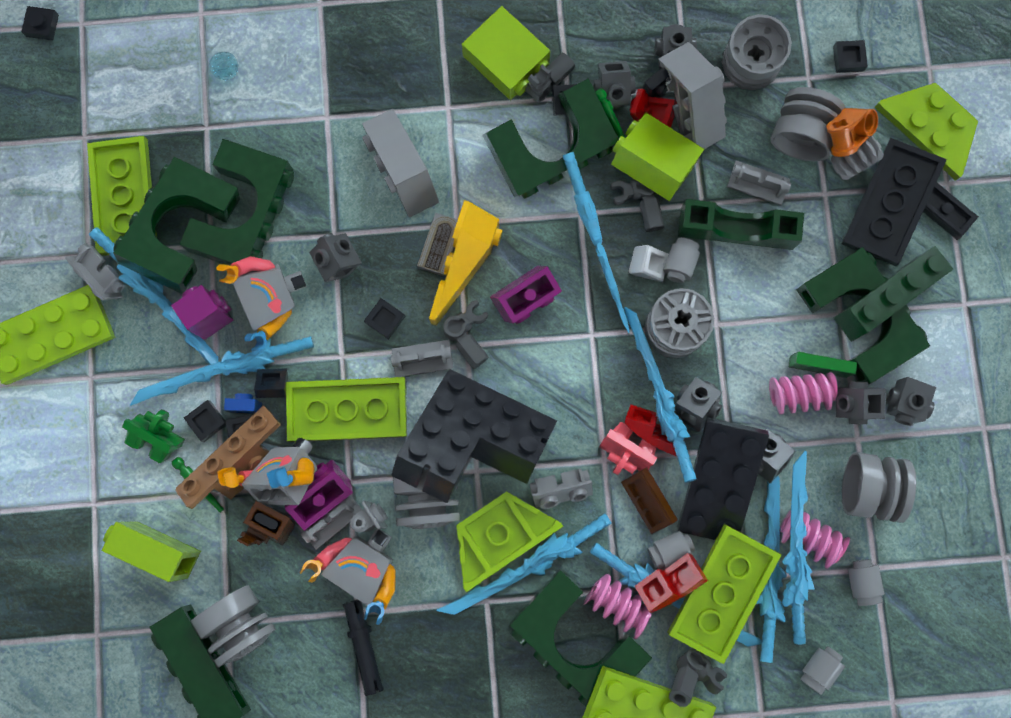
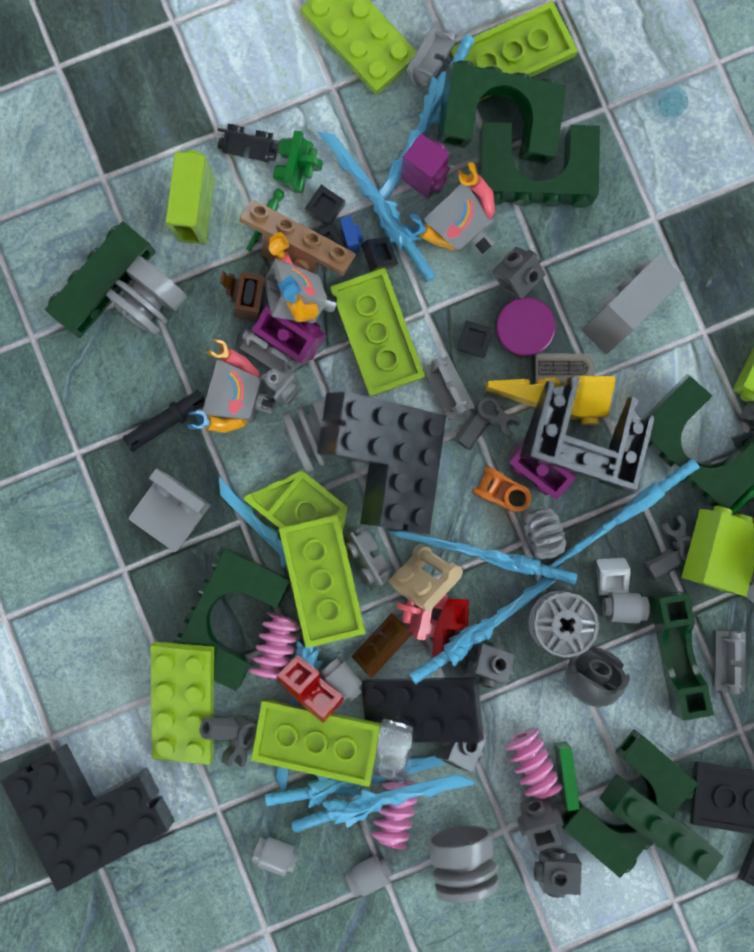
camera: 65 degrees right, 5 degrees up
(108, 487) = (236, 140): none -> black hinge
(388, 268) = (525, 327): none -> magenta tile
(454, 671) = (169, 510): none -> light grey bracket
(509, 280) = (549, 445): none -> wedge
(535, 340) = (500, 490): none -> orange piece
(570, 538) = (322, 581): none -> lime plate
(590, 312) = (544, 533): none -> light grey gear
(603, 445) = (419, 585): none -> tan plate
(605, 356) = (513, 562): none -> medium azure sword
(739, 307) = (596, 677): none -> dark grey cylinder
(754, 520) = (393, 751): none -> clear plate

